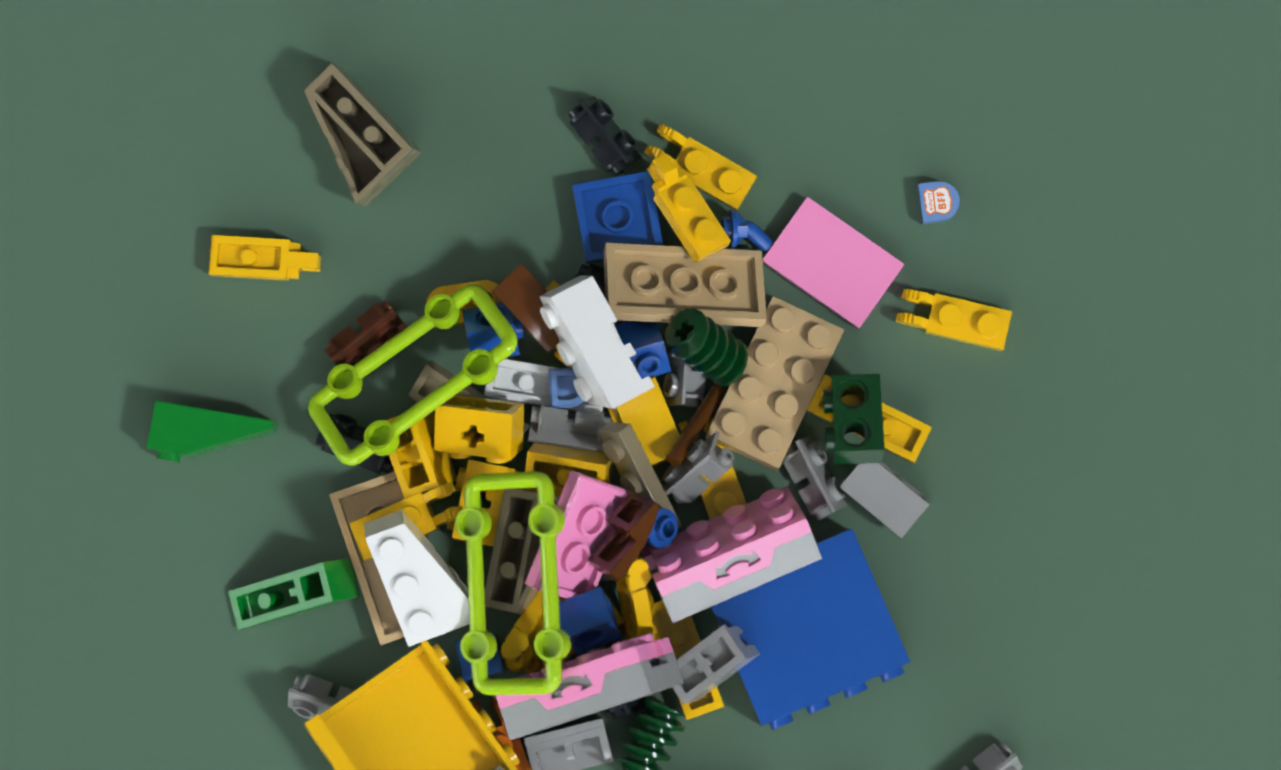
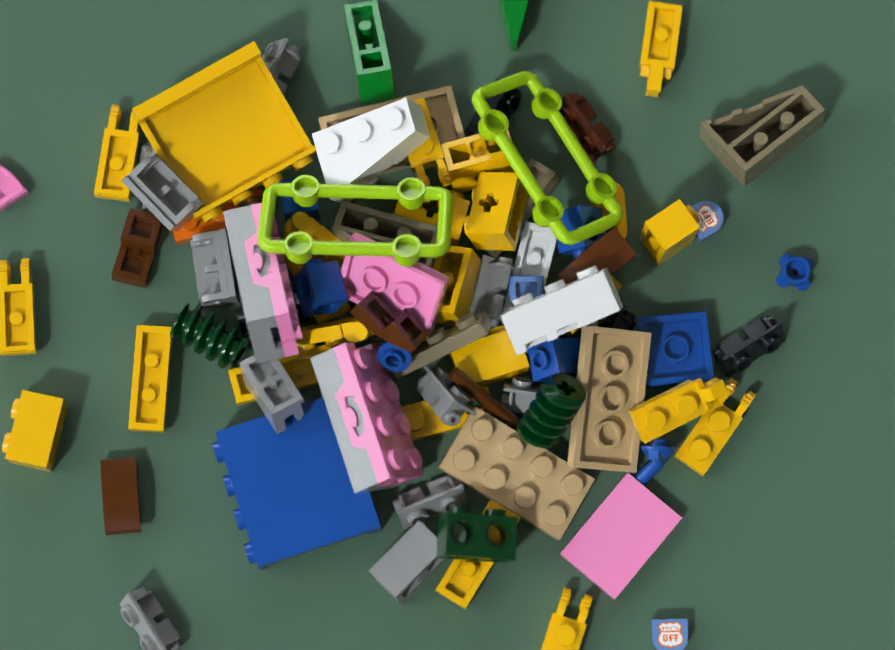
camera: 85 degrees right, 5 degrees down
(463, 194) = (710, 218): none -> tile
(486, 229) = (670, 231): none -> yellow brick
(508, 81) = (790, 263): none -> blue plate

